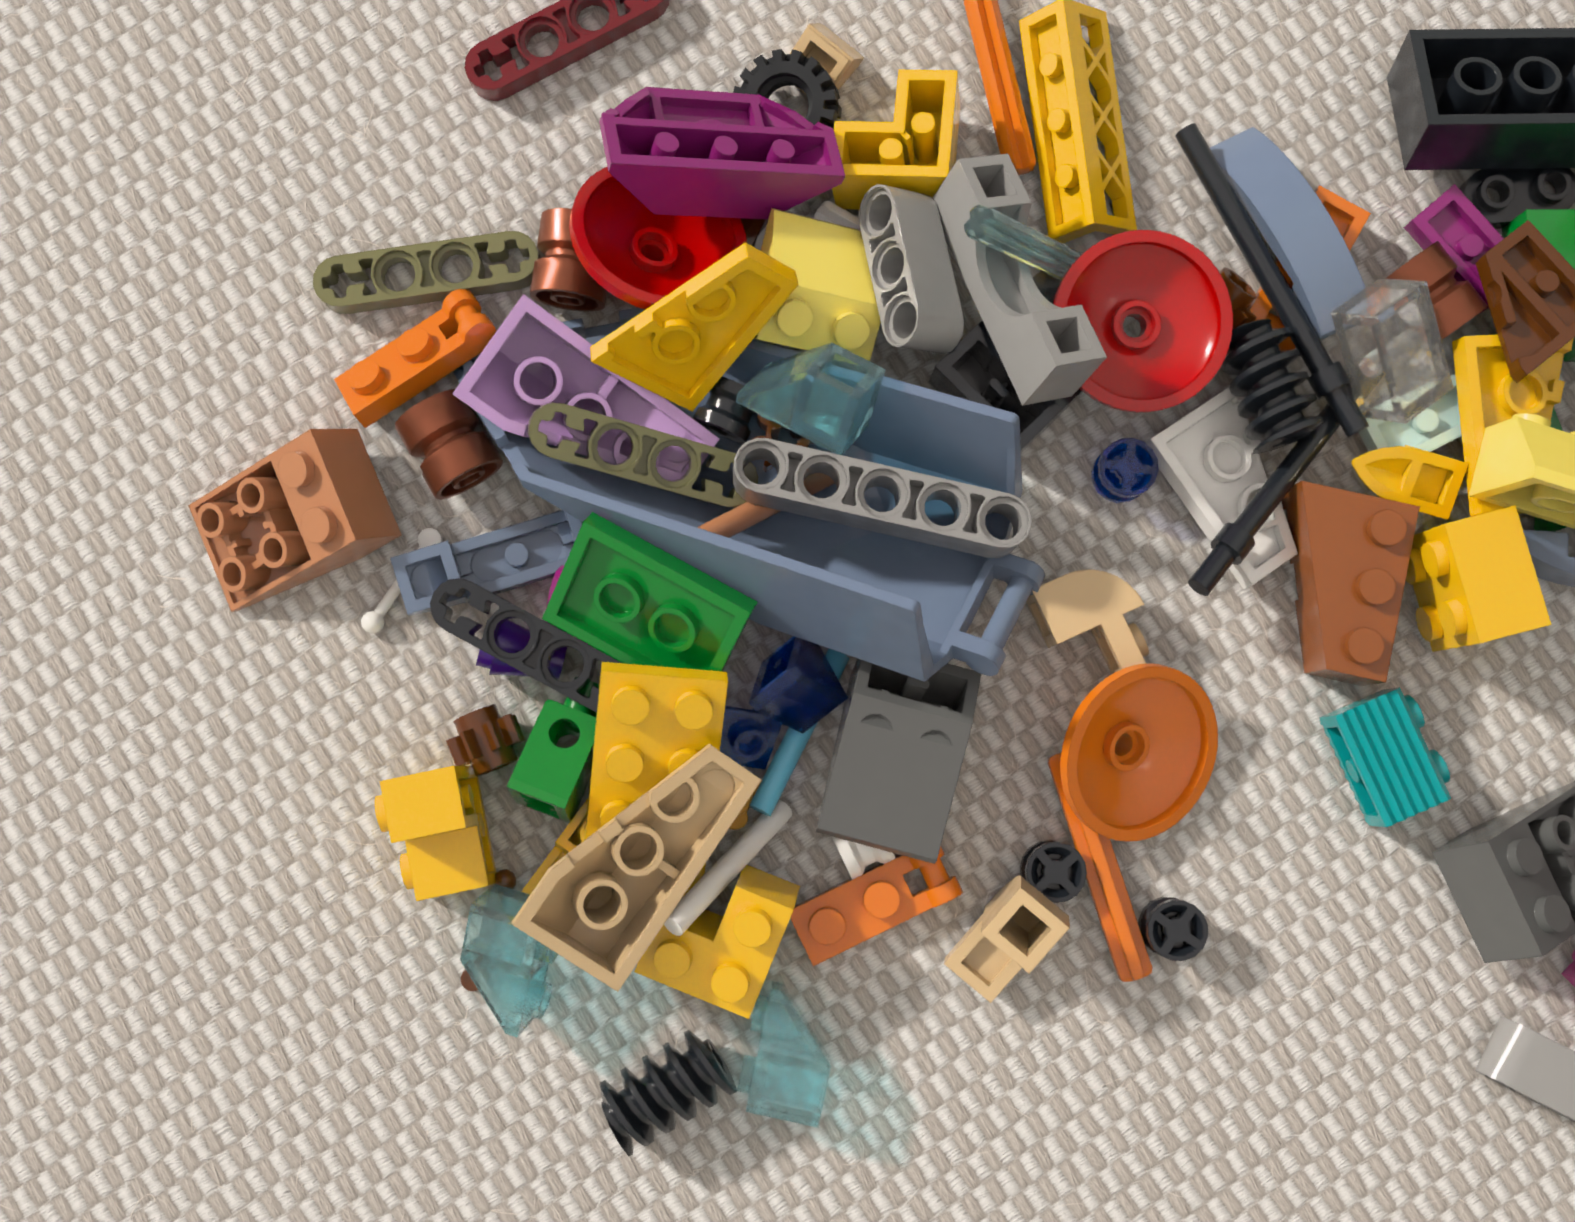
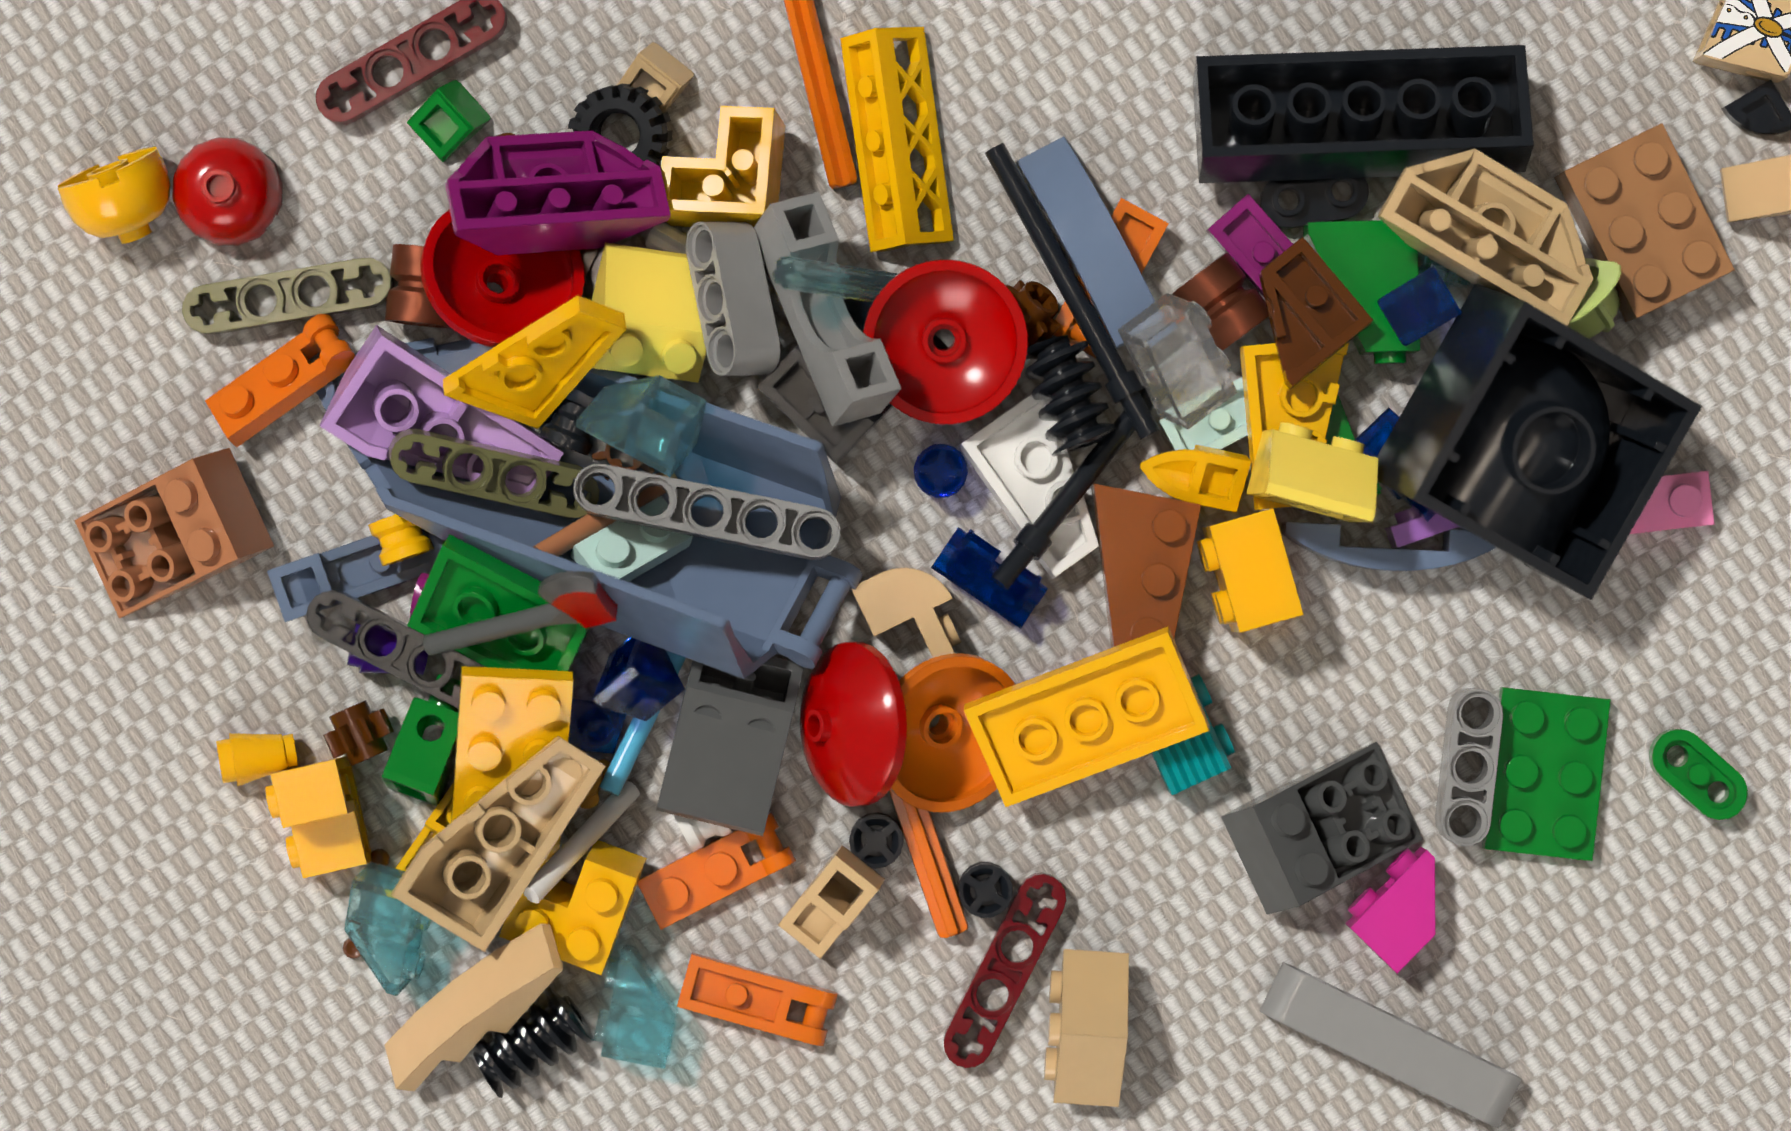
camera: 10 degrees right, 5 degrees up
(248, 156) = (118, 196): none -> yellow cylinder
(363, 763) = (254, 756): none -> yellow cone
(366, 161) = (227, 191): none -> red cylinder
(374, 620) = (250, 624): white hinge -> none
(453, 452) = (317, 465): copper wheel -> none
(537, 527) = (399, 539): none -> yellow wheel
(598, 88) = (448, 119): none -> green slope
(607, 1047) = (478, 1001): none -> tan slope
(735, 581) = (571, 599): none -> piece
(798, 535) = (628, 548): none -> light aqua plate
(916, 1046) = (755, 999): none -> orange plate
(1040, 740) = (853, 724): none -> red dish
(1157, 569) = (971, 563): none -> clear blue hinge
(1202, 1024) = (1011, 973): none -> dark red beam
(1300, 1089) = (1089, 1027): none -> tan brick
(1301, 736) = (1086, 717): none -> yellow plate

